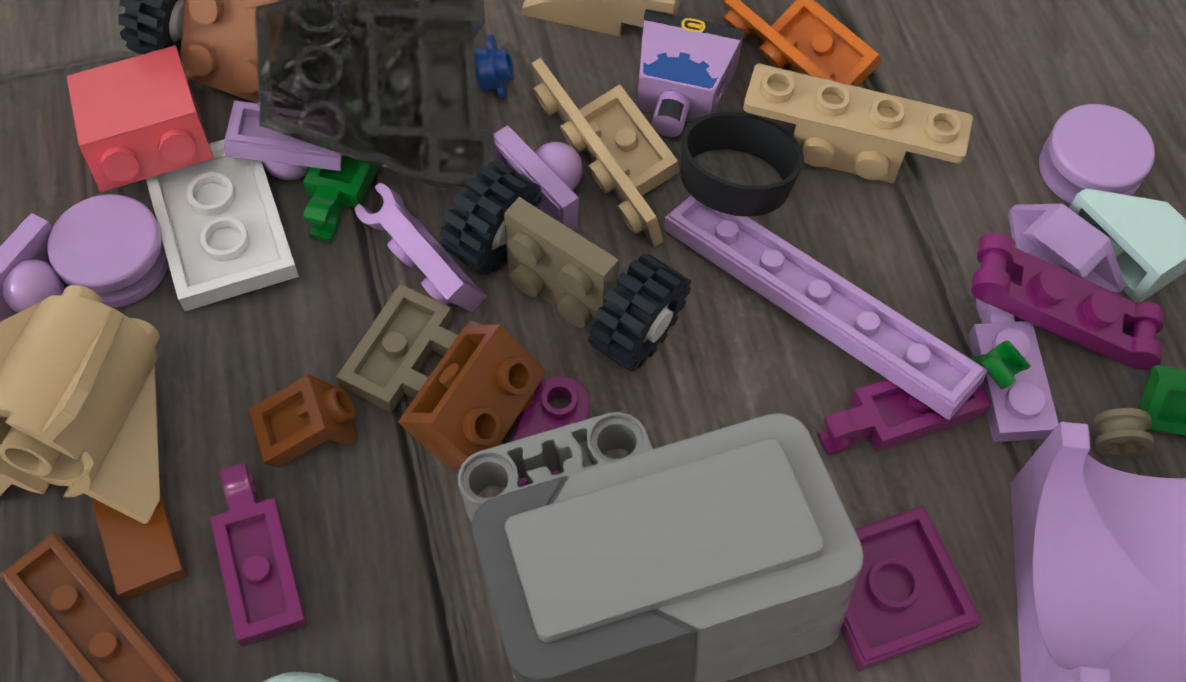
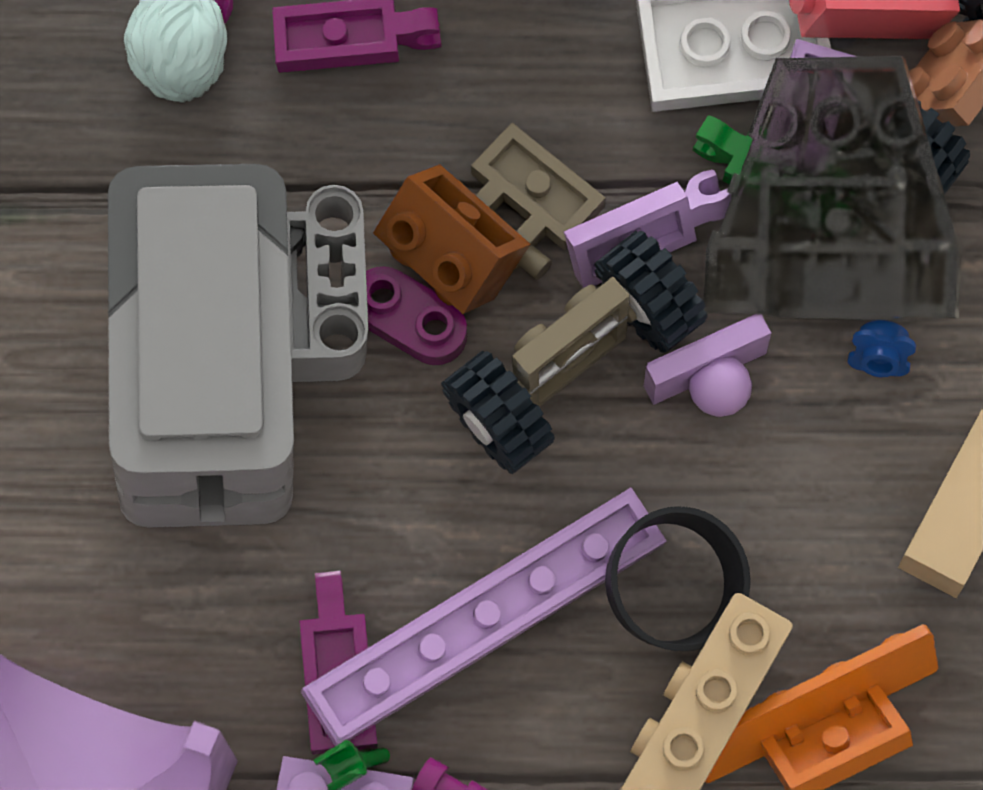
camera: 110 degrees right, 10 degrees up
(302, 419) = (477, 92): dark orange bracket -> none
(620, 143) = (738, 453): tan bracket -> none
(684, 69) = (830, 560): lavender torso -> none
(904, 591) = (162, 594): magenta tile -> none

